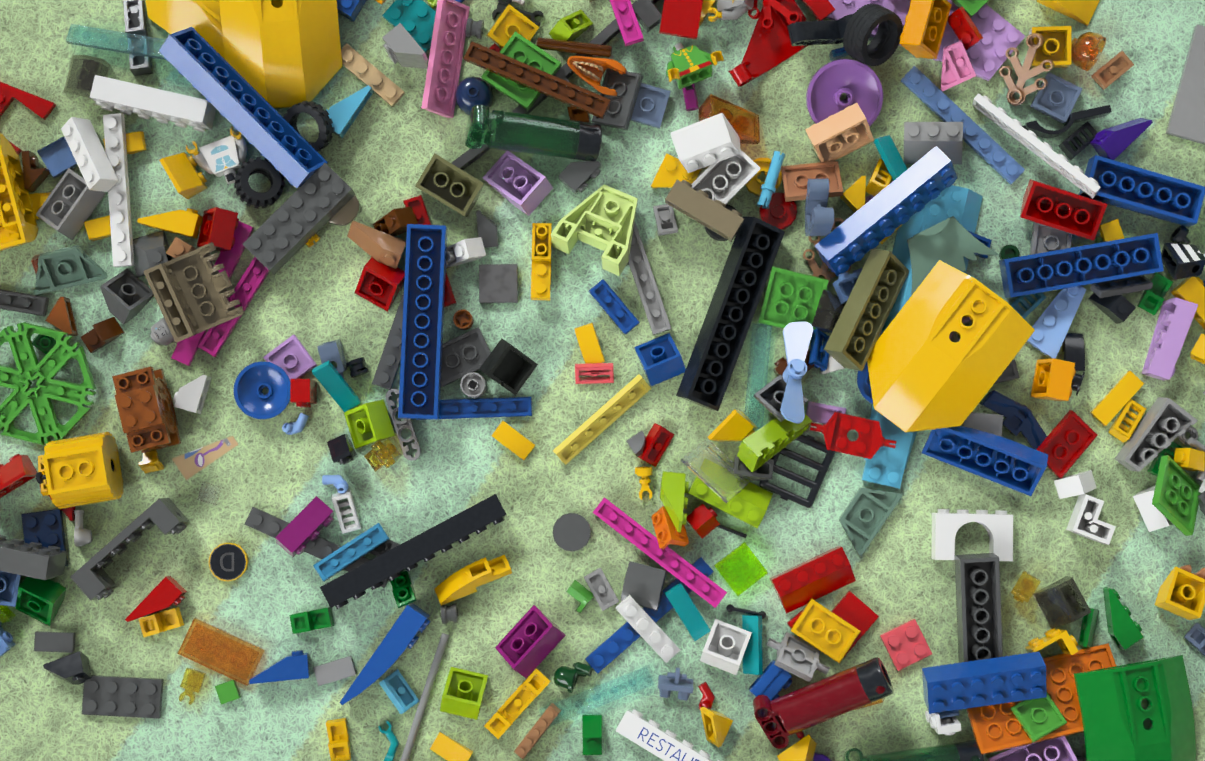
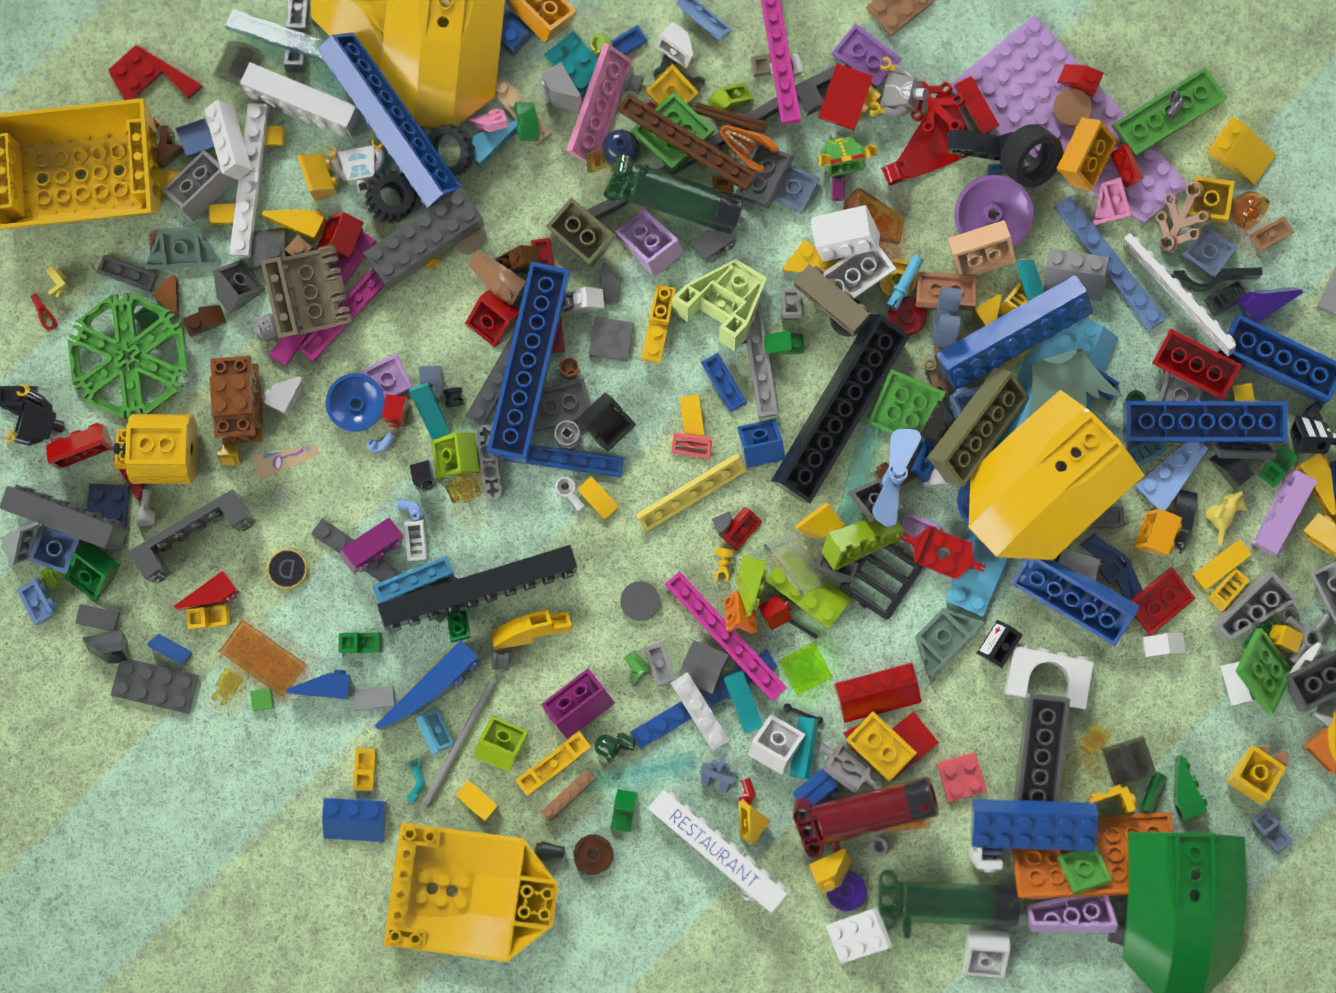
camera: 15 degrees right, 5 degrees down
(130, 659) = (170, 649): none -> blue slope
(343, 91) = (490, 122): none -> bright pink wing
(378, 85) = (527, 121): none -> green slope
(451, 112) = (595, 160): none -> clear yellow tile
(484, 439) = (568, 492): none -> white bar
(665, 259) = (783, 343): none -> green slope
(843, 728) = (885, 843): none -> light grey plate
(921, 513) = (999, 644): none -> black brick
(1085, 520) = (1167, 683): white brick -> none
(1111, 350) = (1222, 515): none -> light yellow animal

